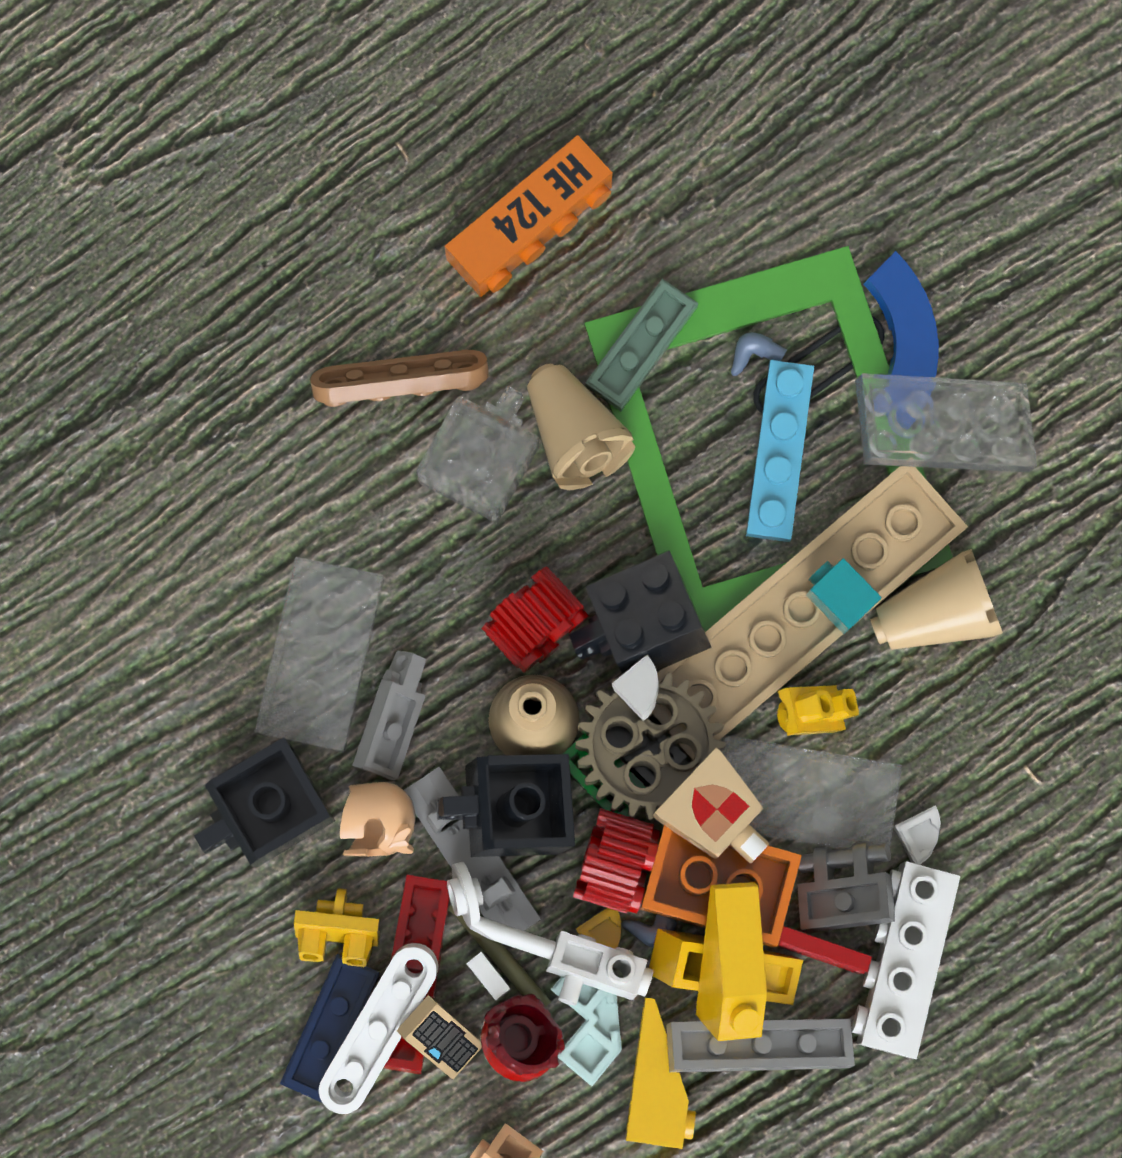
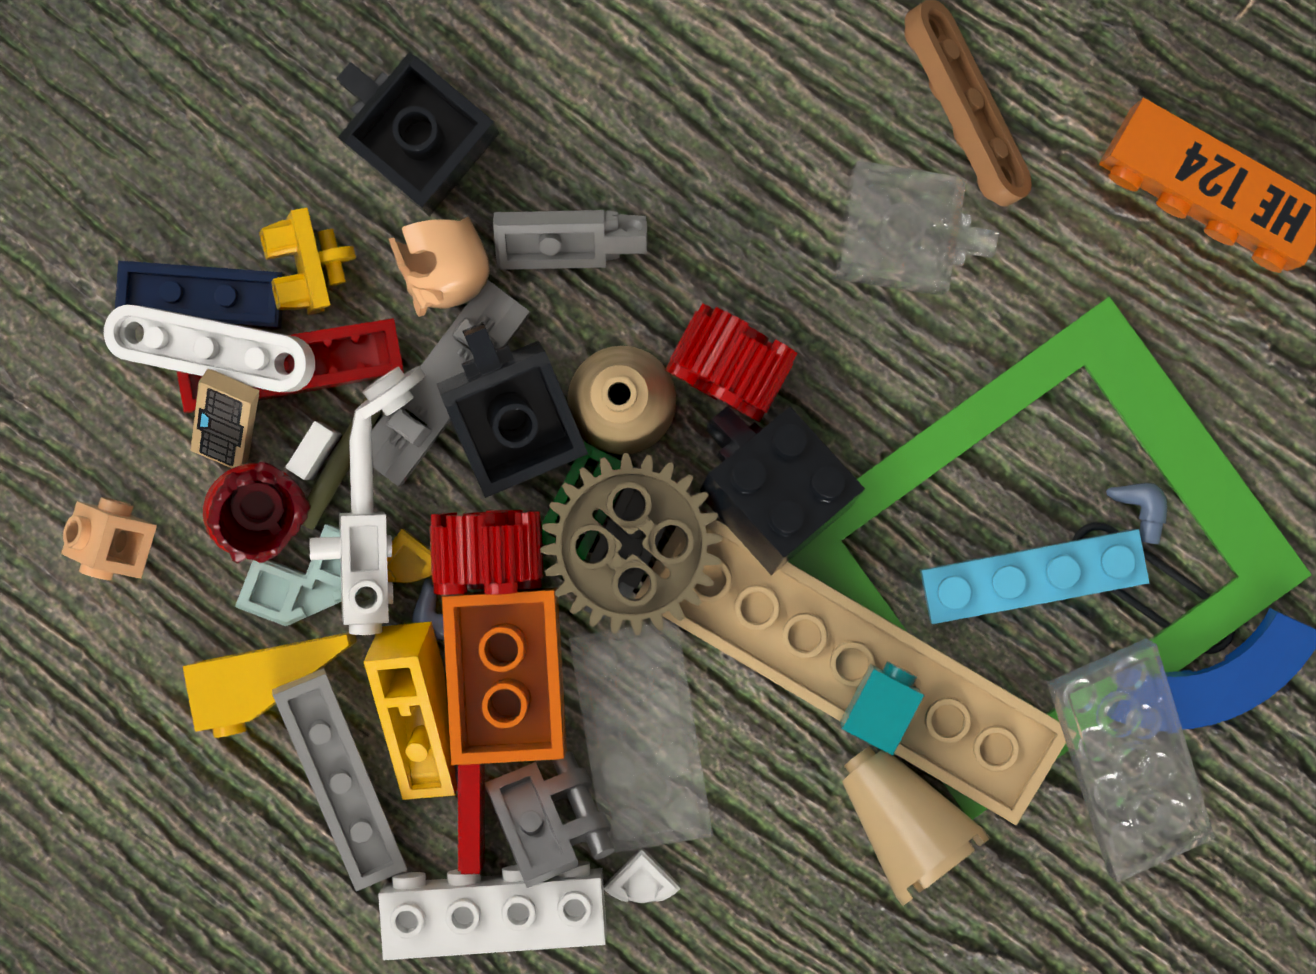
camera: 70 degrees right, 10 degrees up
(319, 654) = (610, 129): clear plate -> none
(576, 428) = (976, 329): tan cone -> none
(639, 687) = (690, 509): white tile -> none
(641, 345) = (1105, 372): sand green tile -> none
(714, 810) = (575, 644): tan torso -> none
(733, 965) = (408, 722): yellow slope -> none
(815, 709) = (740, 718): yellow hips -> none

